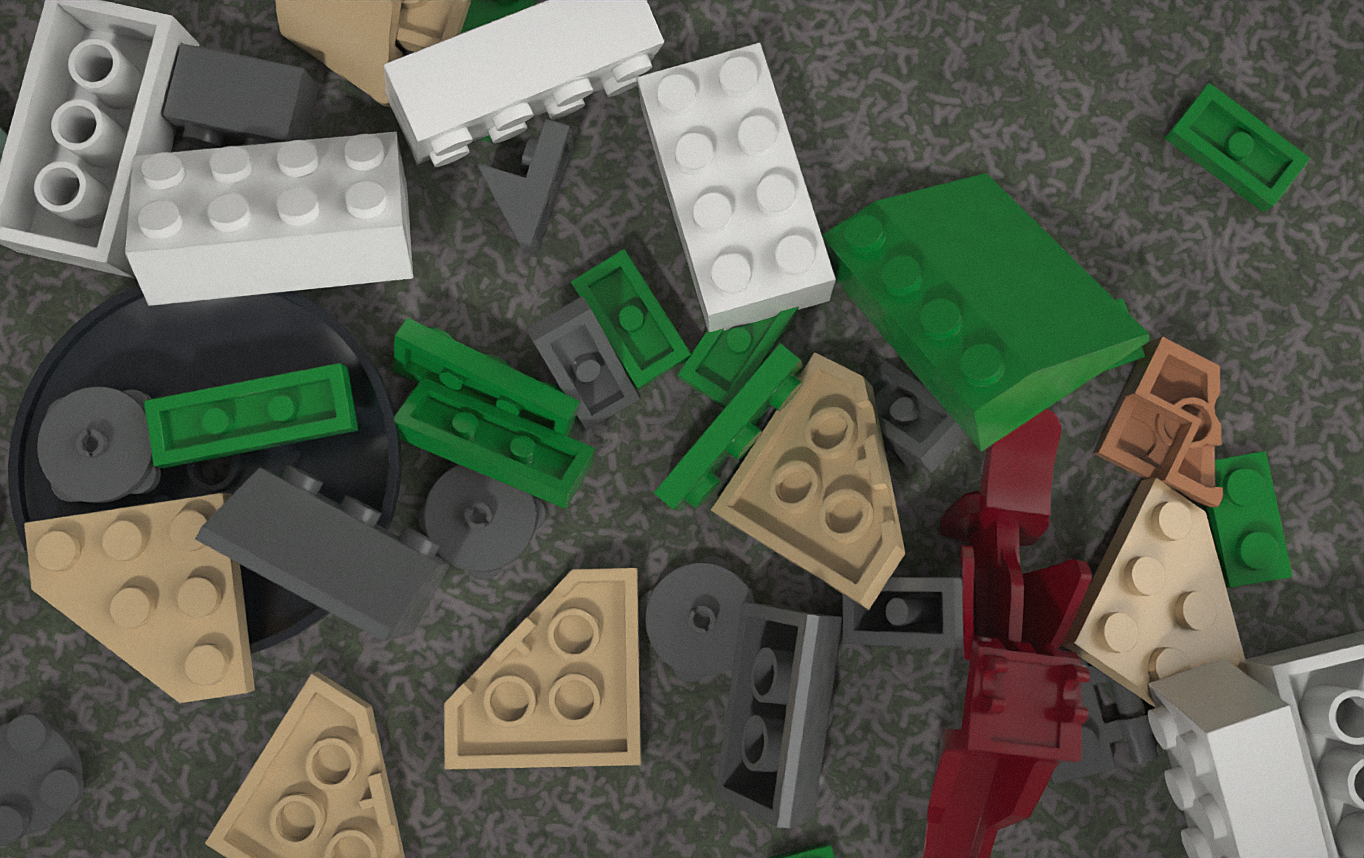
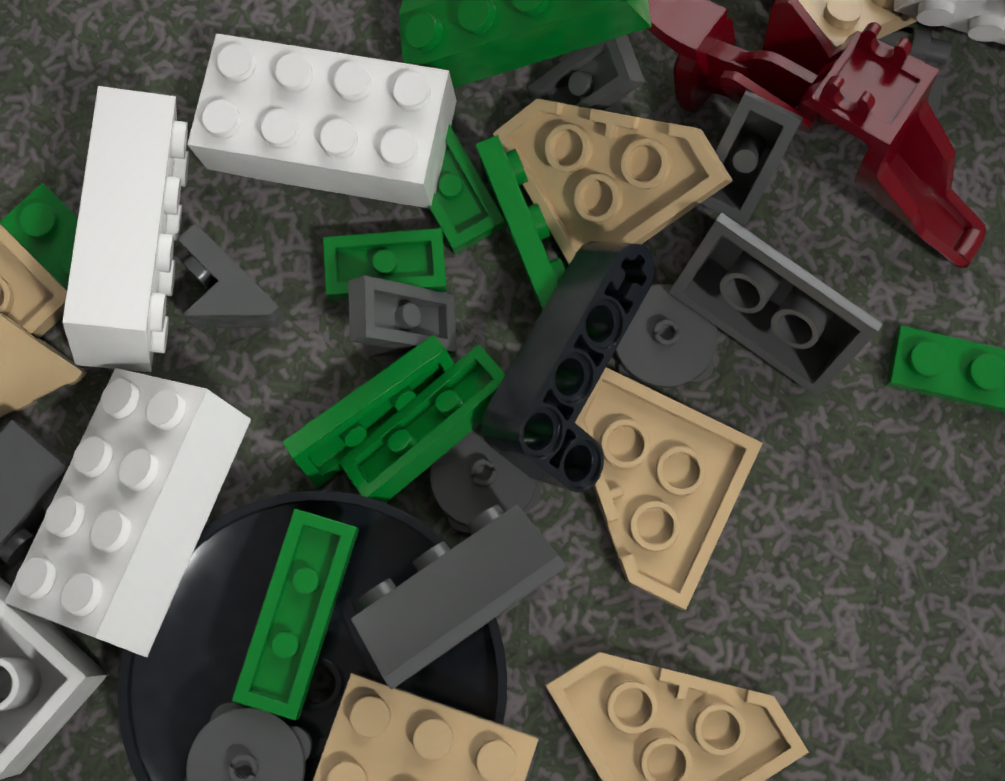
camera: 70 degrees left, 5 degrees down
(613, 537) = (561, 363): none -> black beam

